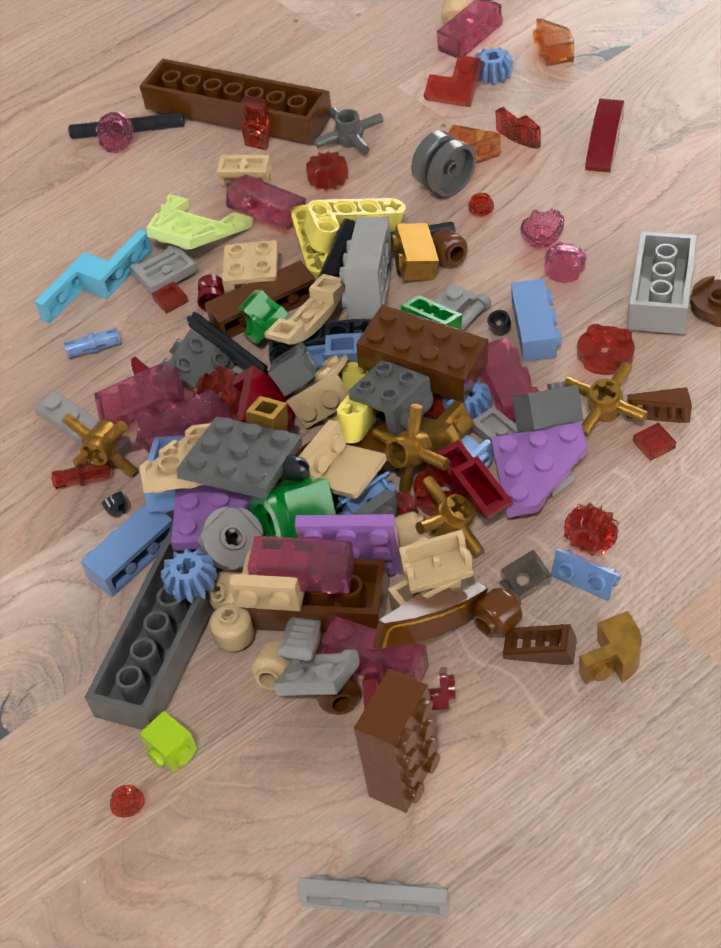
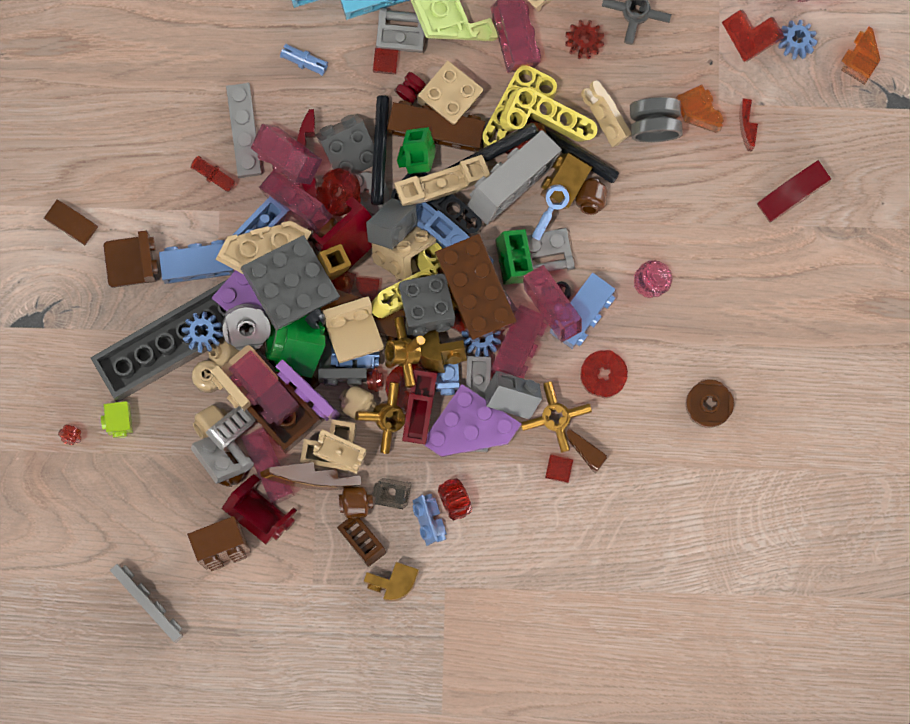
camera: 30 degrees right, 30 degrees up
(60, 596) = (131, 260): none -> reddish brown bracket
(100, 443) = (235, 169): pearl gold bar -> none
(115, 503) = (215, 216): black hinge -> none
(416, 198) = (606, 113): none -> tan hinge
(426, 275) = (547, 215): none -> light blue piece
(481, 204) = (653, 174): clear red plate -> none
(505, 315) = (552, 303): none -> clear pink brick
(542, 228) = (665, 238): clear pink hair -> none
(662, 282) = (686, 359): light grey brick -> none

